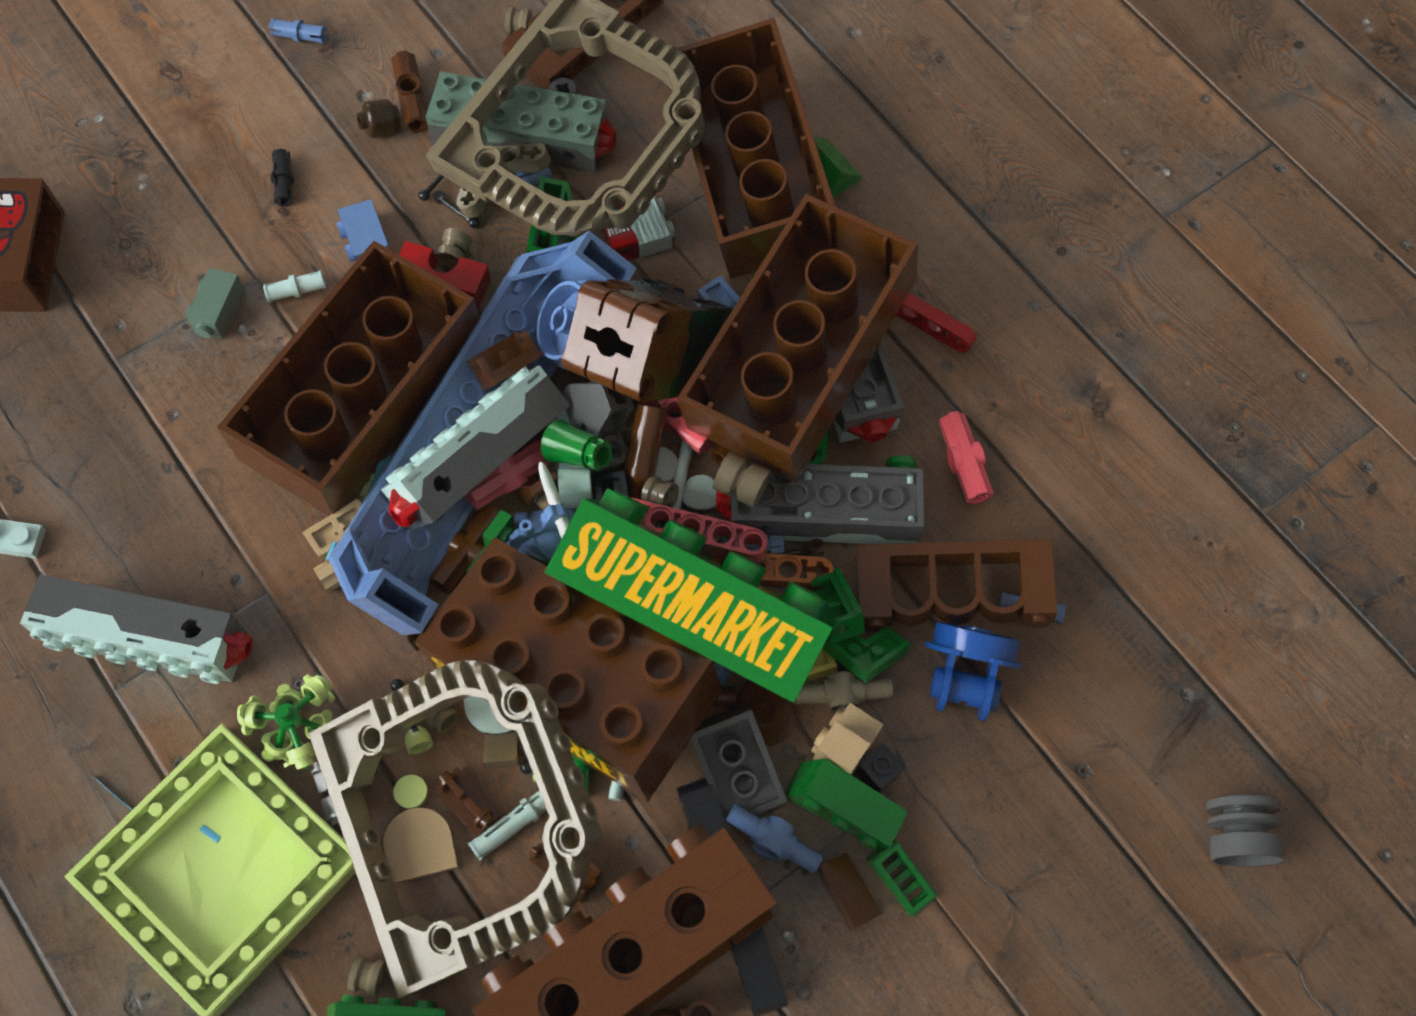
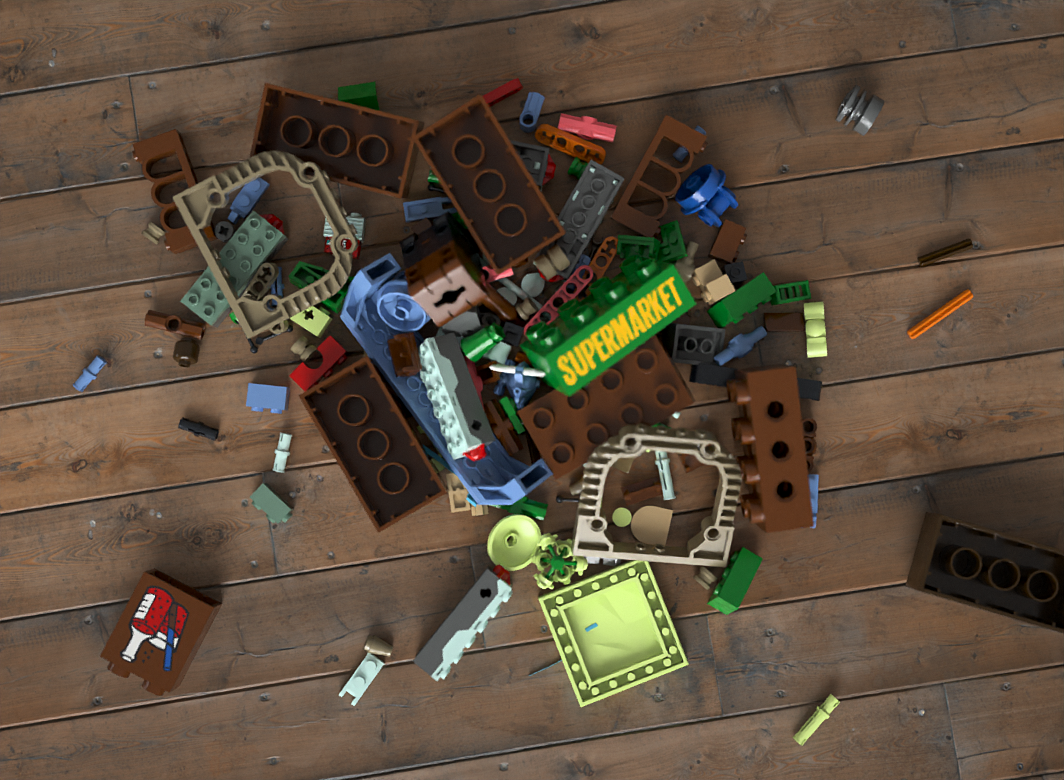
camera: 65 degrees left, 20 degrees up
(55, 532) = (375, 645): none -> dark tan cone
(275, 647) = (520, 548): none -> yellowish green dish
(360, 634) = (526, 507): none -> green piece
(500, 237) = (317, 324): none -> yellowish green brick
(626, 103) = (247, 199): none -> medium blue hinge
(865, 946) = (815, 329): none -> yellowish green piece
(922, 736) = (727, 242): none -> reddish brown brick
(933, 444) = (571, 140): none -> orange beam
(941, 374) = (531, 111): none -> medium blue piece

